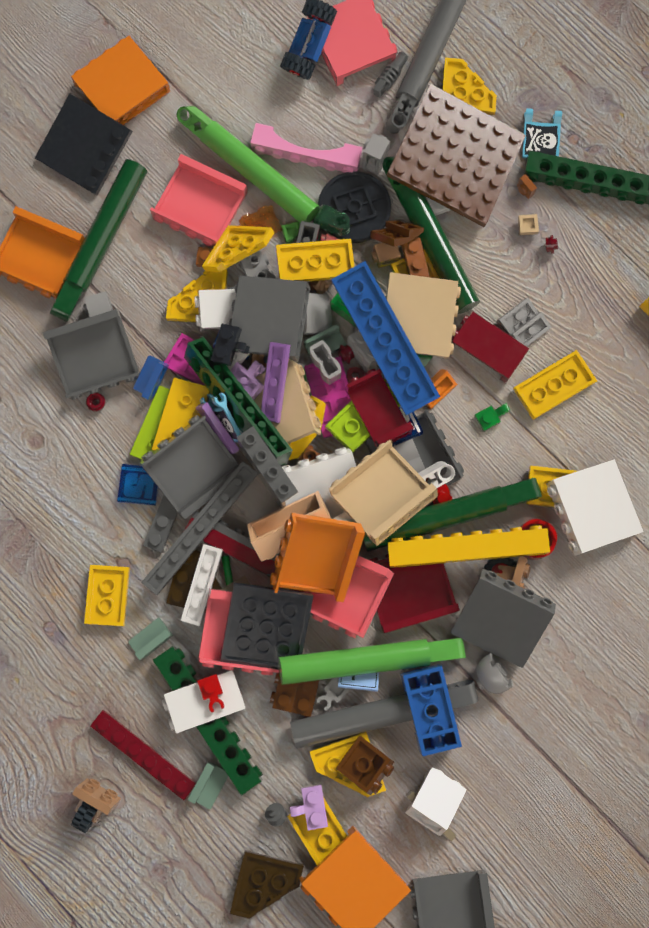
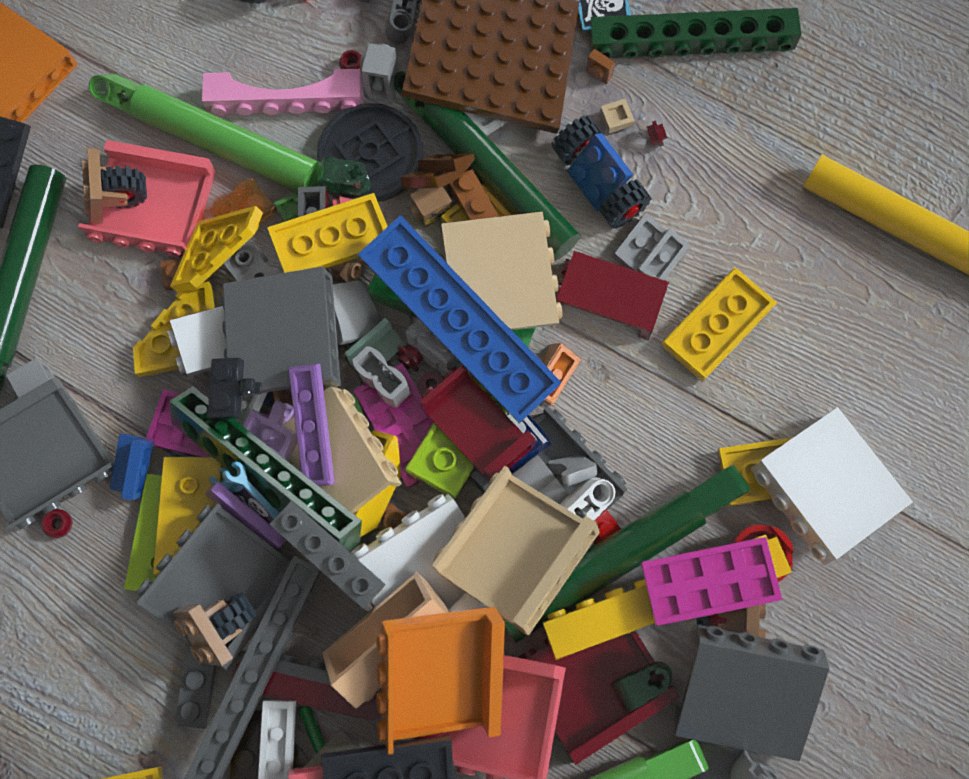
camera: 10 degrees left, 5 degrees down
(136, 486) = (144, 637): clear blue tile -> none
(176, 187) = (110, 186): none -> plate
(183, 491) = (213, 627): none -> medium nougat plate
(357, 135) = (349, 57): none -> dark red plate
(432, 454) = (573, 469): none -> light grey piece
(436, 597) = (638, 688): none -> clear green piece
(489, 417) = (640, 394): green plate -> none
(498, 543) = (711, 581): none -> dark pink plate
(505, 262) = (600, 172): none -> plate

